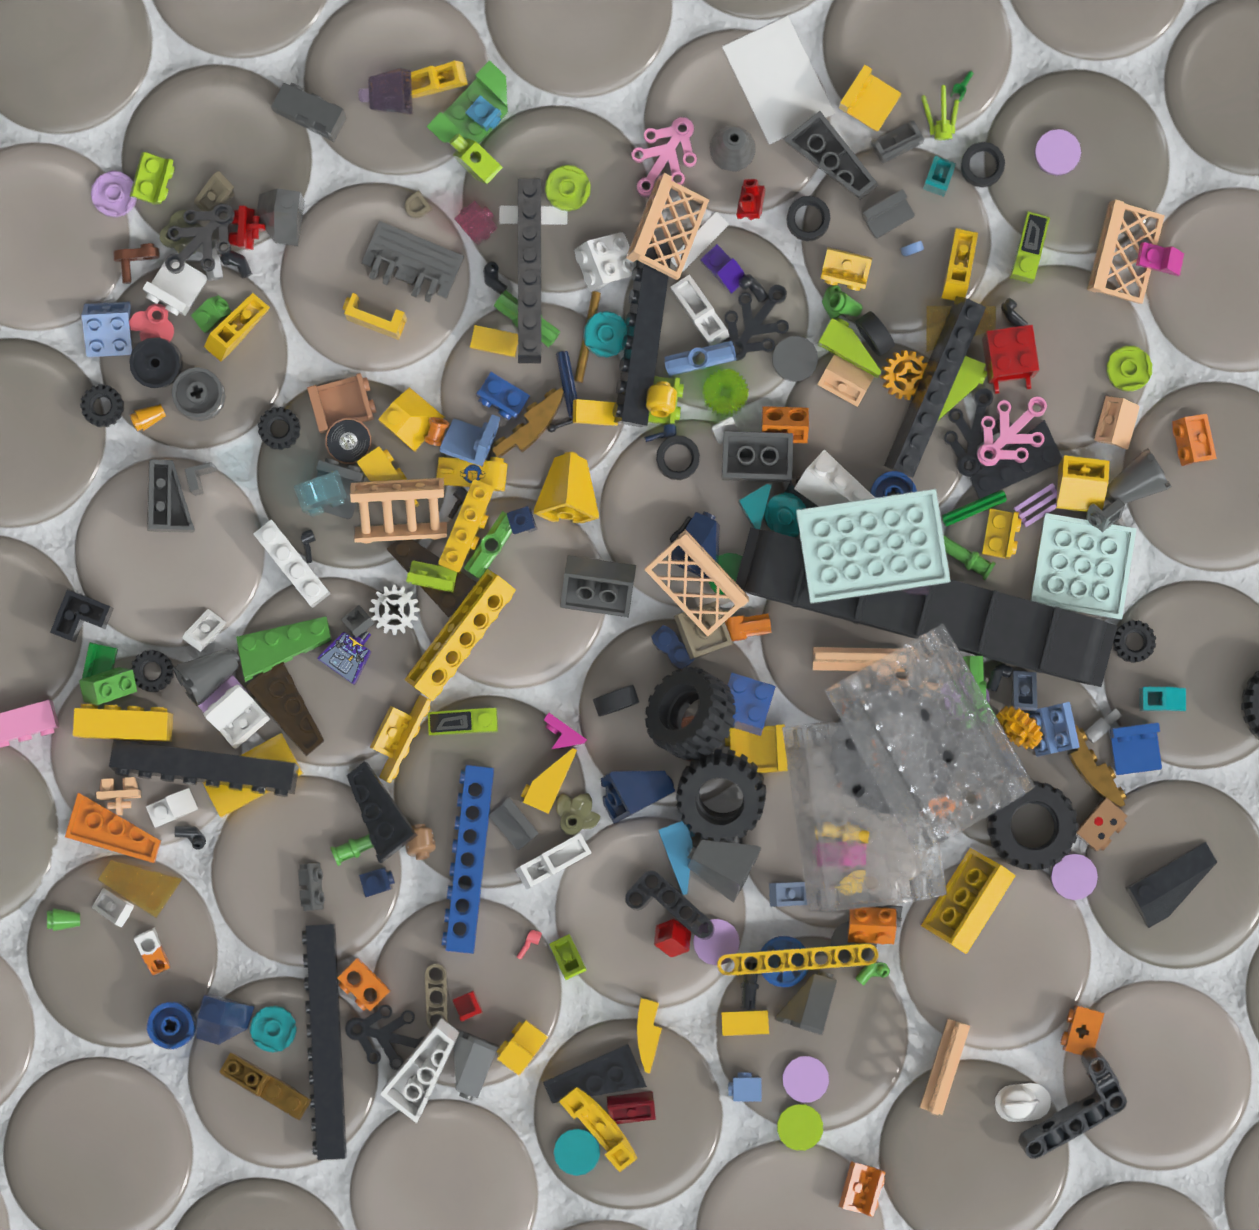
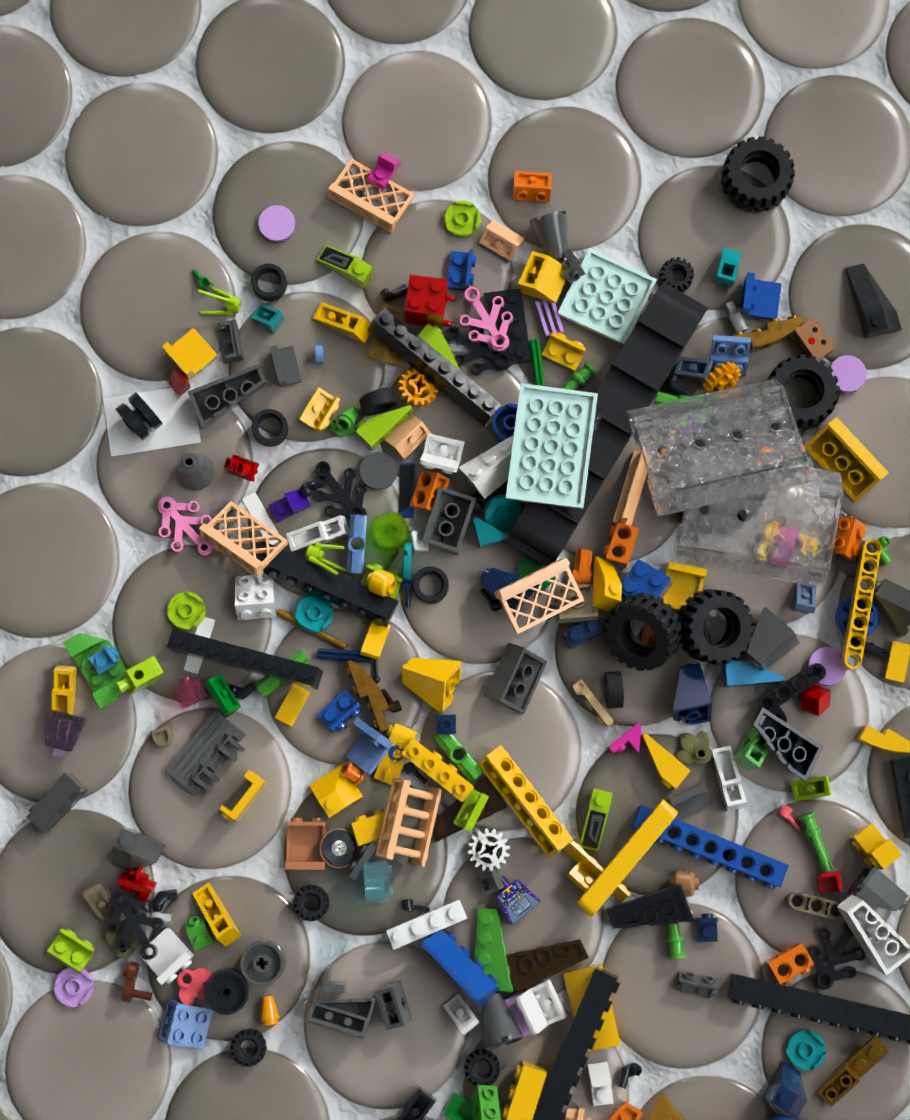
camera: 75 degrees left, 5 degrees down
(192, 552) = (393, 1005): none -> dark grey brick
(255, 613) = (461, 966): none -> blue slope
(428, 766) = (626, 858): none -> yellow beam
(481, 258) = (222, 695): none -> green panel
(518, 973) = (813, 832): none -> bright green pin
(526, 457) = (395, 706): none -> dark brown hand
(595, 682) = (592, 702): none -> tan hinge
(595, 880) = (752, 751): none -> bright green brick
(607, 918) = (790, 745): none -> black wedge
(673, 315) = (316, 555): none -> lime plant
(695, 422) = (407, 562): none -> teal tile
(734, 657) = (606, 585): none -> yellow slope
(776, 65) = (137, 417): none -> black wheel
(783, 397) = (406, 489): none -> black sticker
(789, 670) = (625, 545): none -> orange brick
(831, 97) = (179, 382): none -> red slope
(834, 426) = (442, 453): none -> white bracket
(1065, 384) = (460, 270): none -> blue bracket

